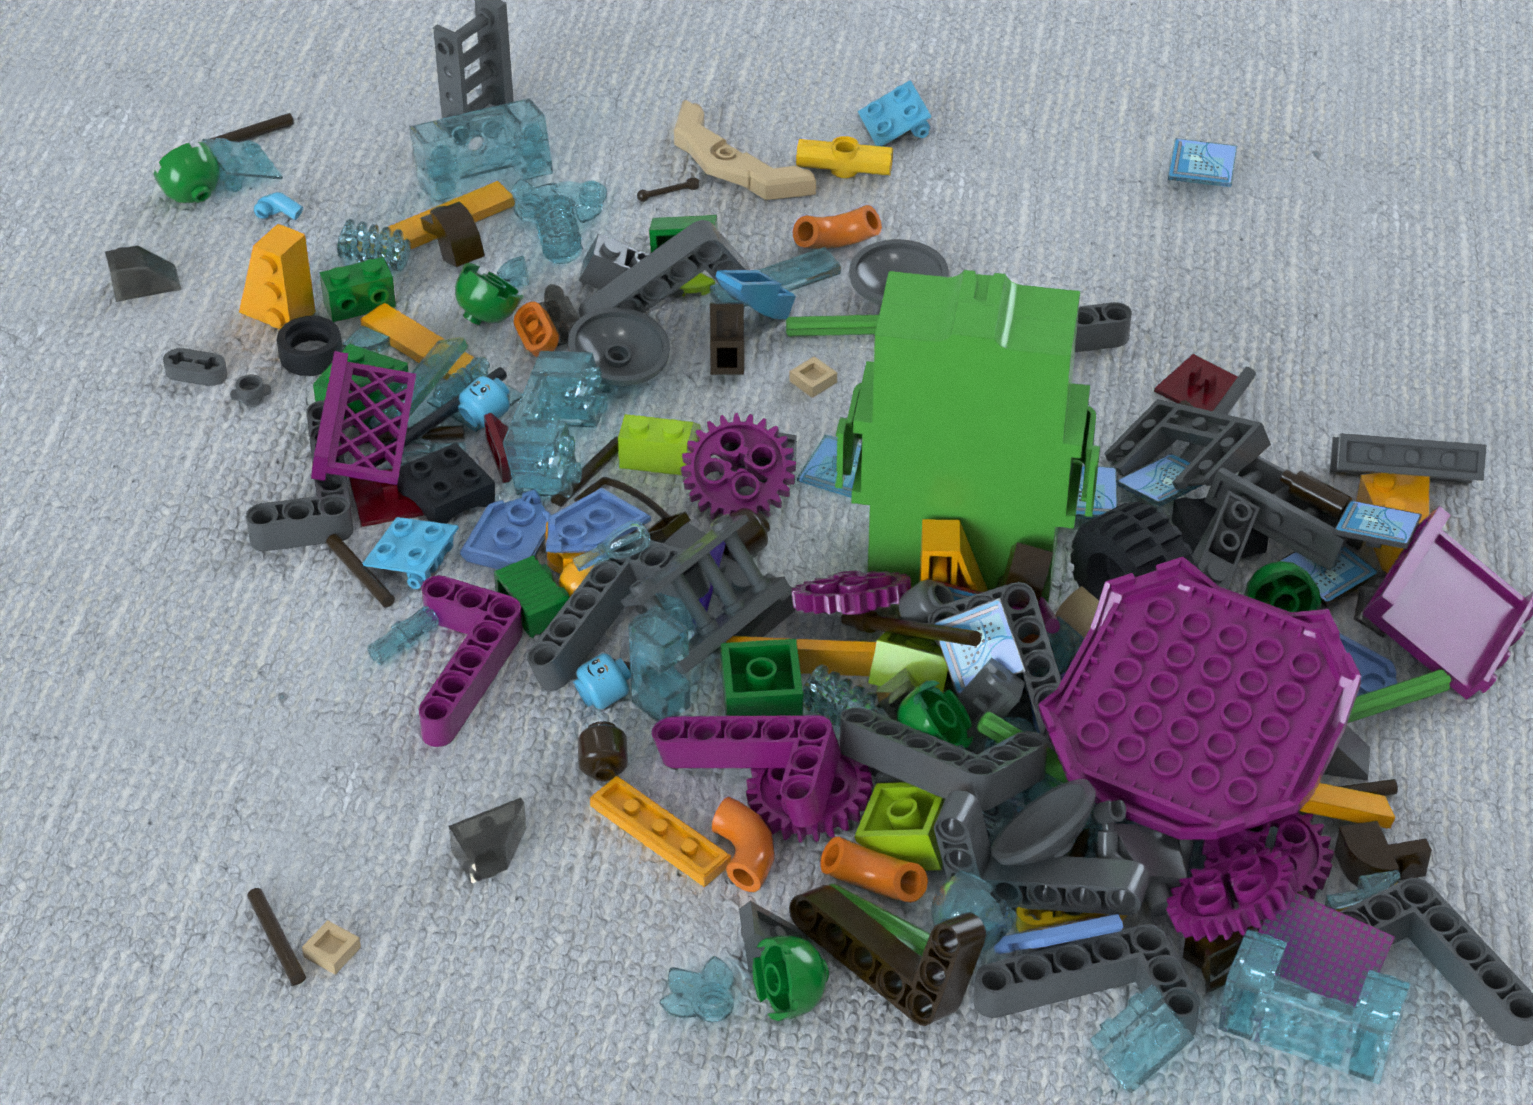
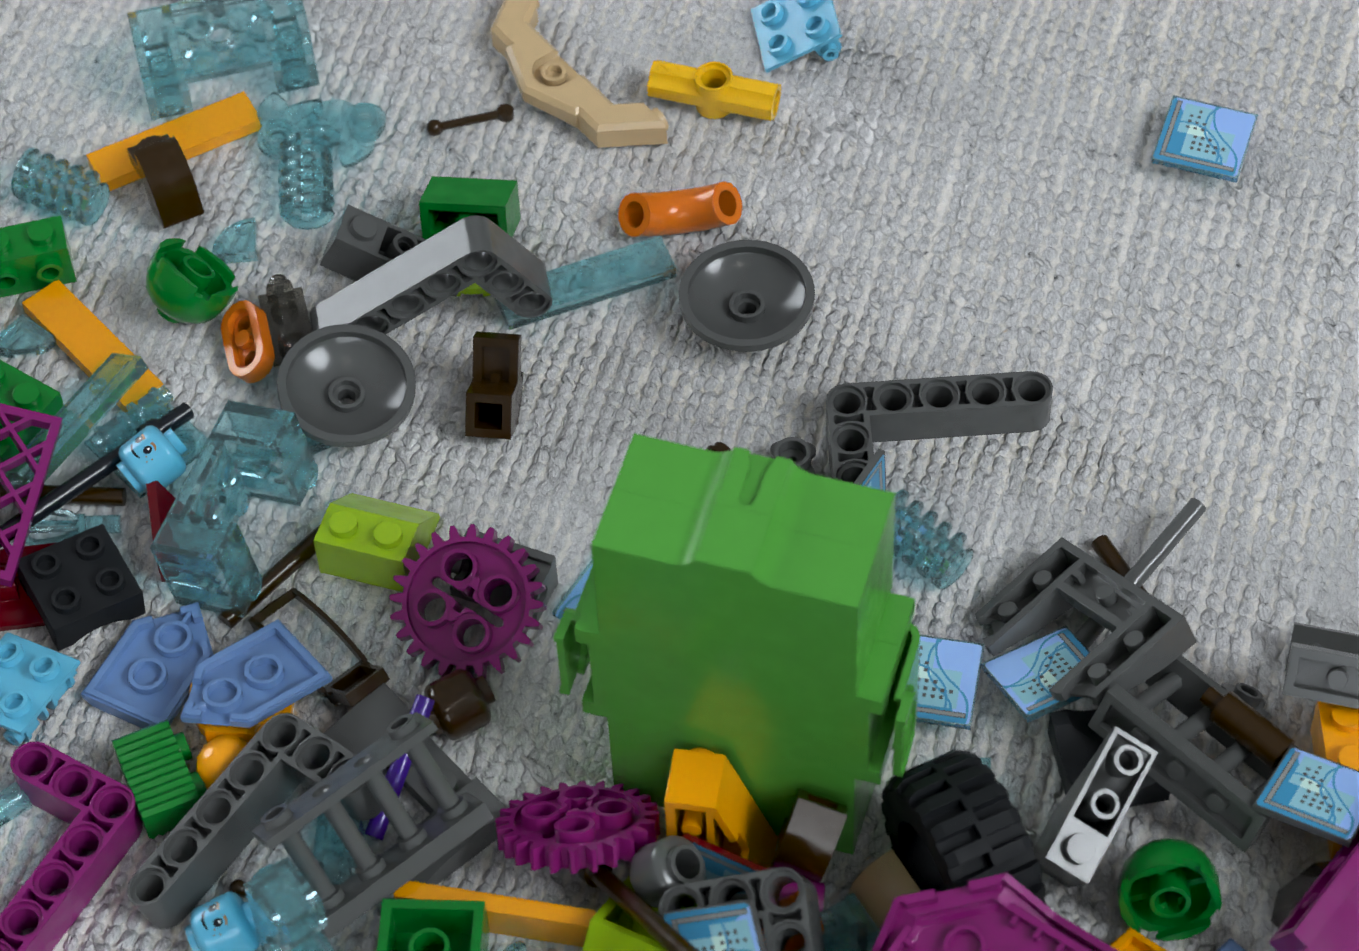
camera: 10 degrees right, 10 degrees up
(604, 550) = (249, 740): clear light blue piece -> none
(757, 292) = (545, 316): dark azure slope -> none
(813, 376) = (602, 447): tan tile -> none
(831, 325) = (672, 367): bright green axle -> none
(1050, 621) = (835, 890): magenta bar -> none
(1197, 382) = (1129, 507): dark red piece -> none
(1334, 584) = (1242, 874): piece -> none

